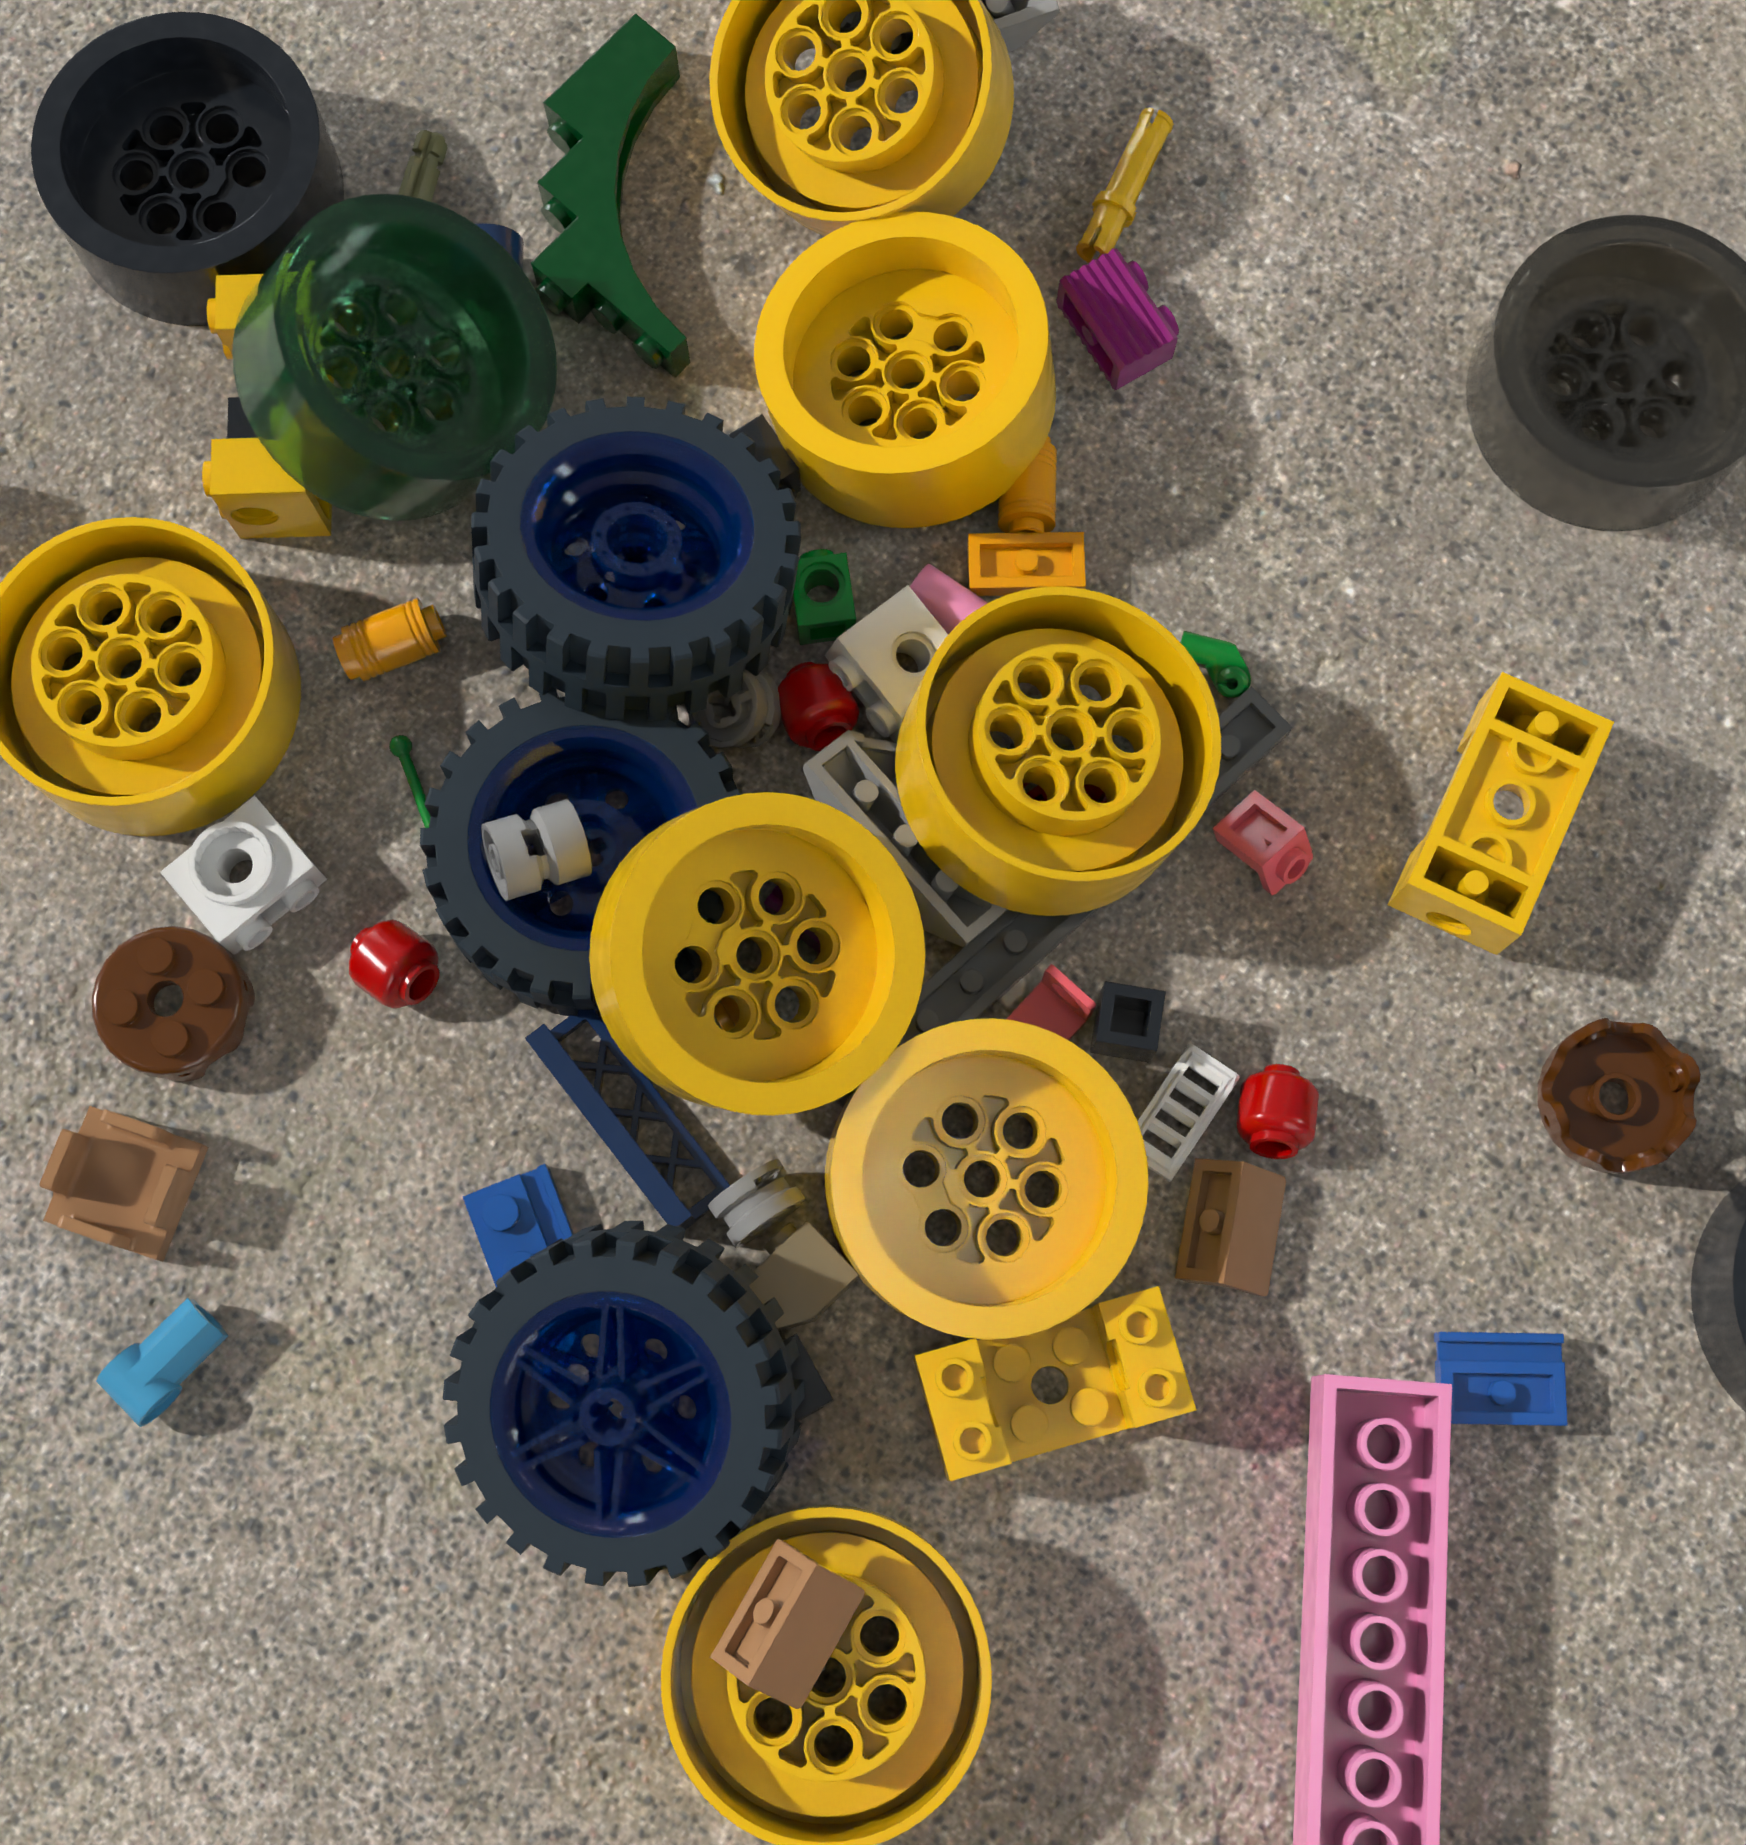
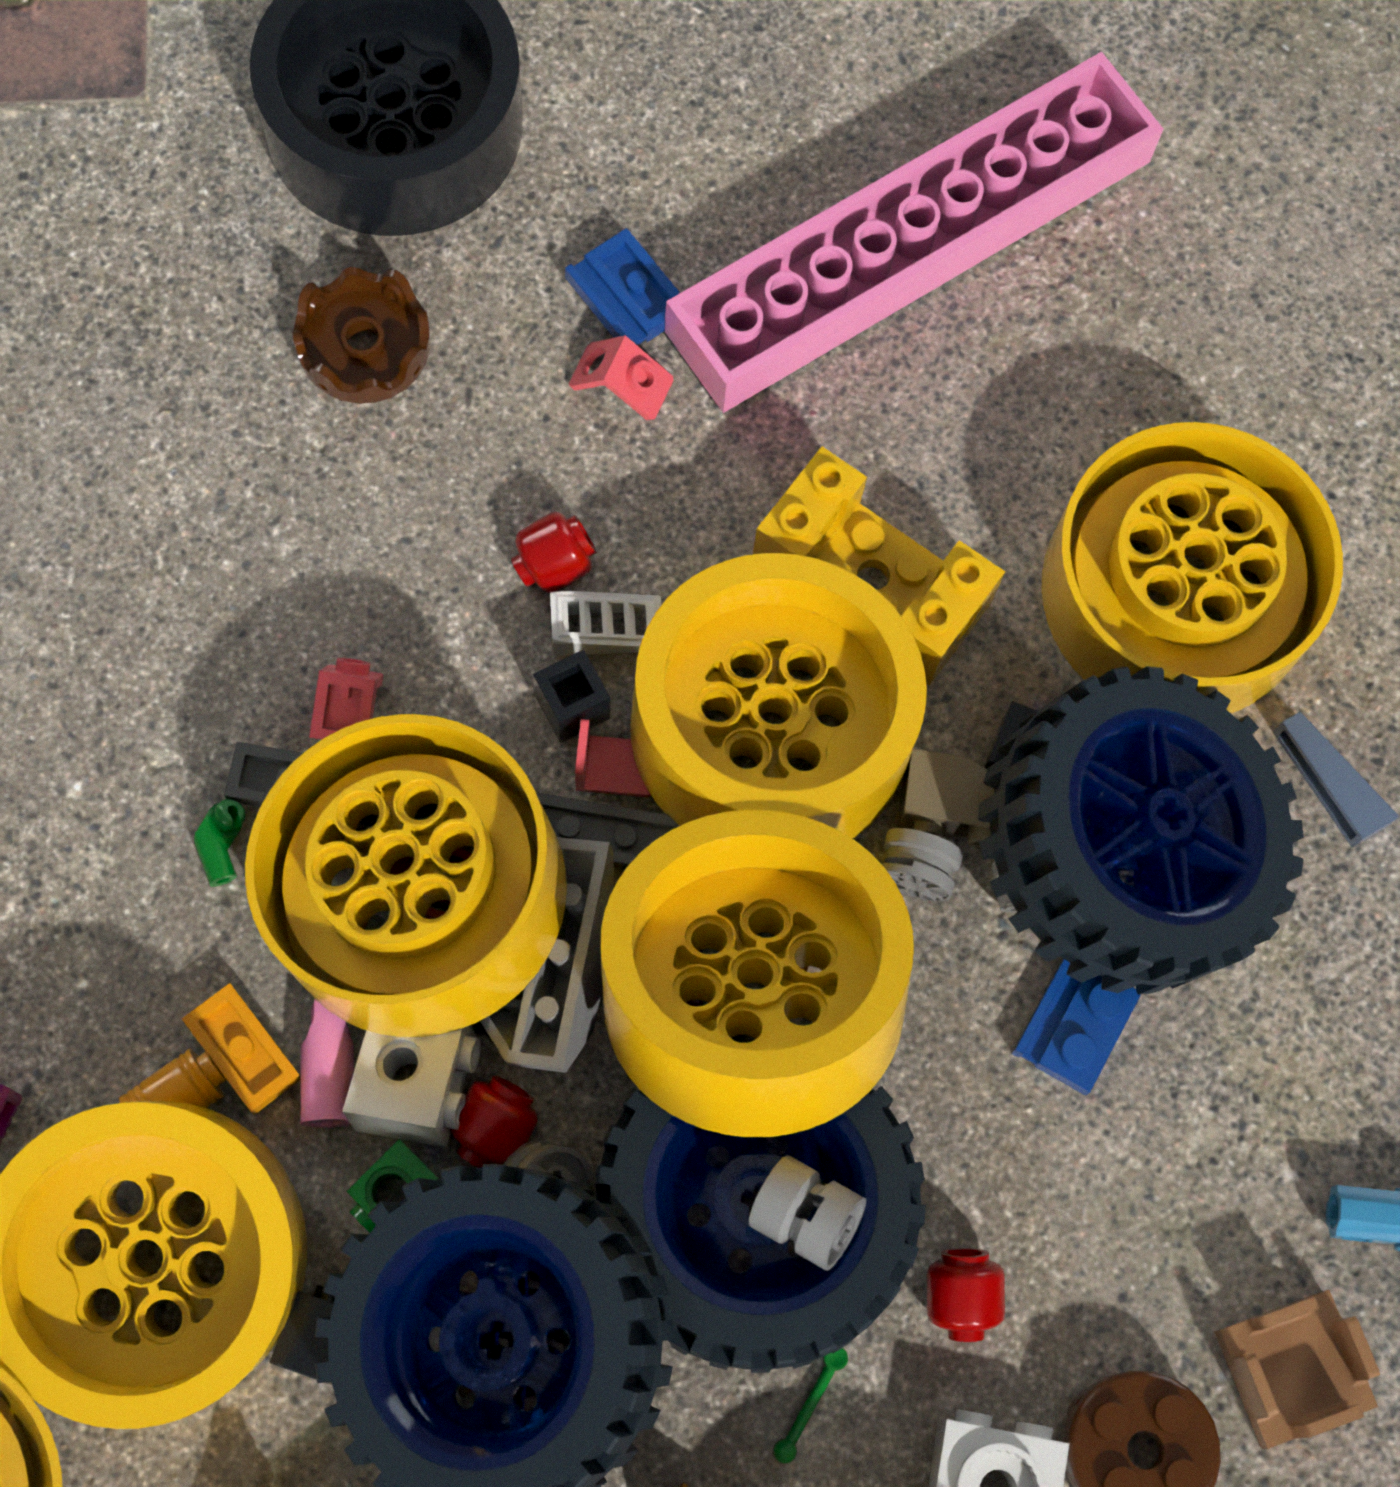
camera: 135 degrees left, 5 degrees down
(520, 1649) = (1338, 786): none -> sand blue piece
(609, 1128) = (952, 1015): dark blue fence -> none
(787, 1625) = (1197, 596): medium nougat panel -> none
(1231, 1226) = (663, 532): medium nougat panel -> none
(1411, 1310) = (626, 373): none -> coral bracket
(1484, 871) = (259, 525): yellow plate -> none

